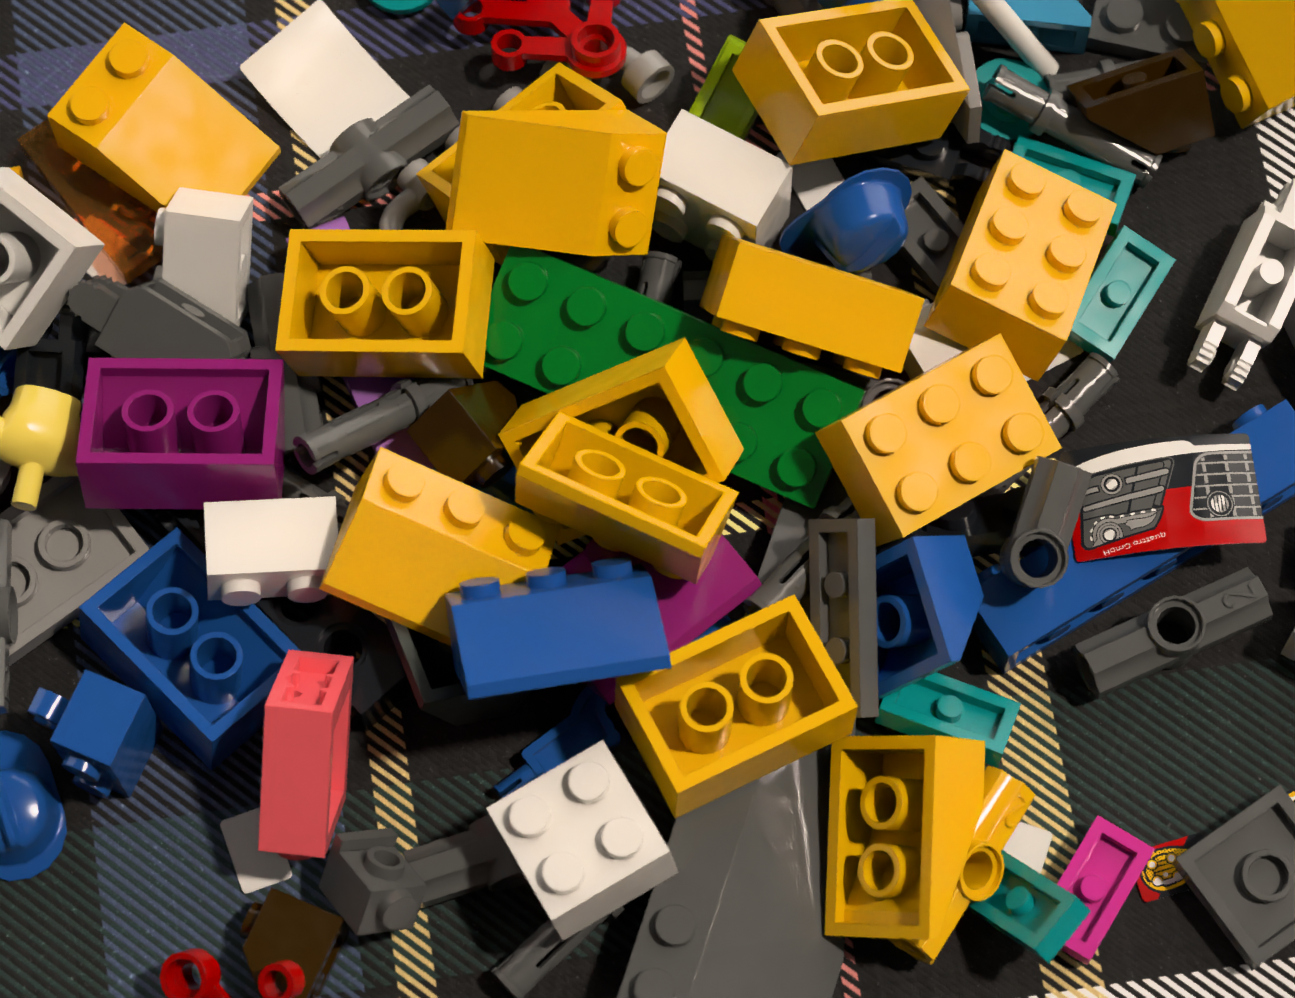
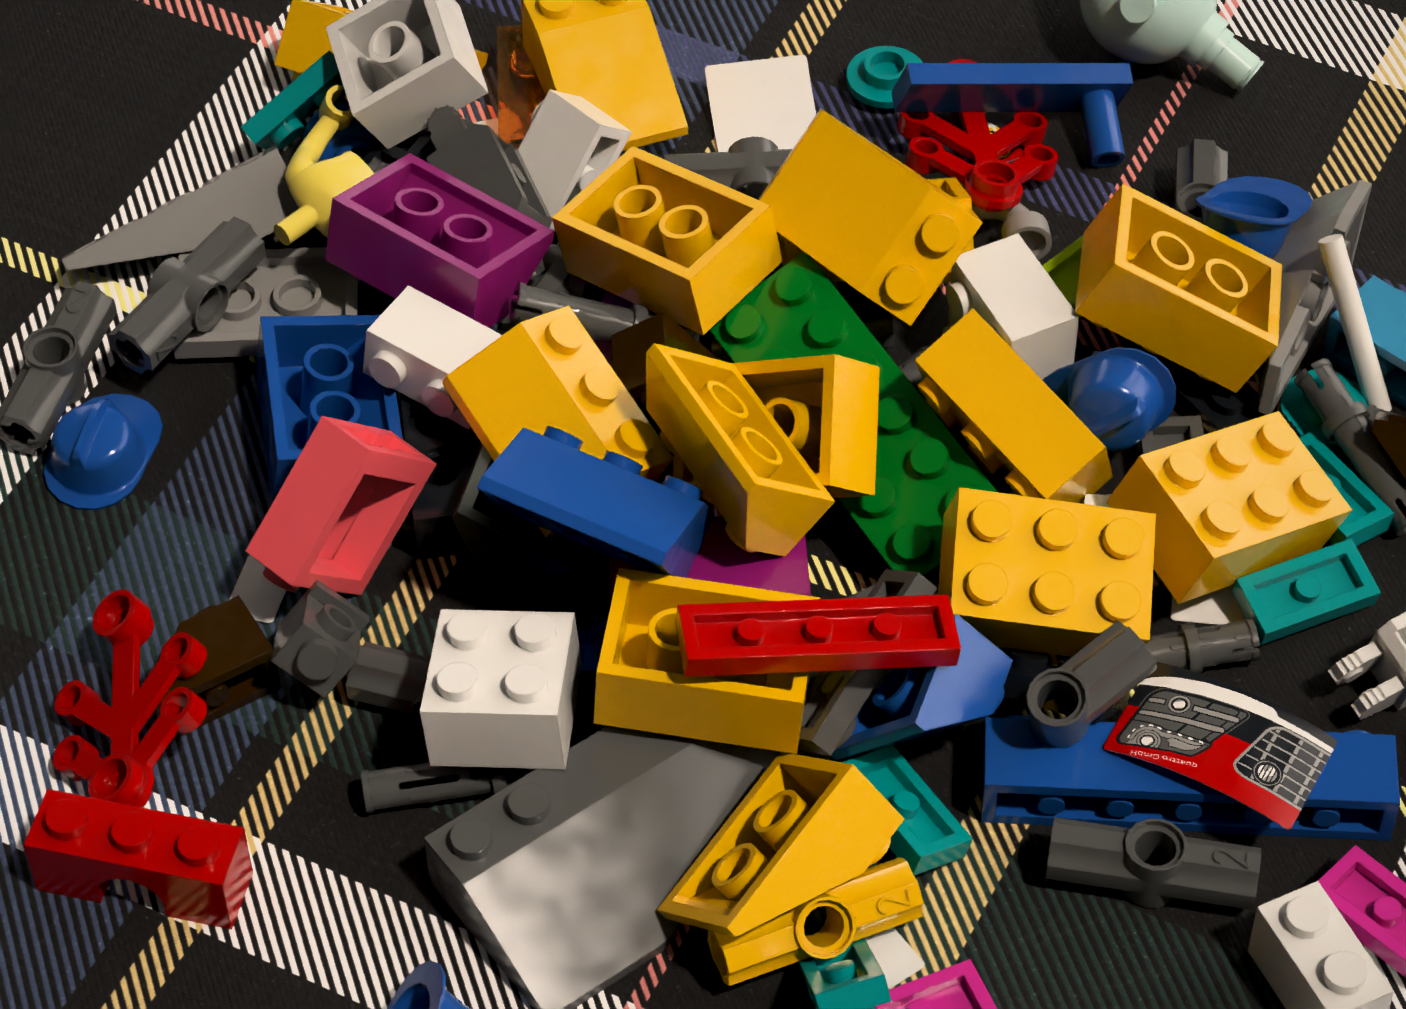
camera: 35 degrees right, 20 degrees down
(100, 733) = (207, 422): blue brick -> none
(831, 642) = (817, 635): none -> red plate

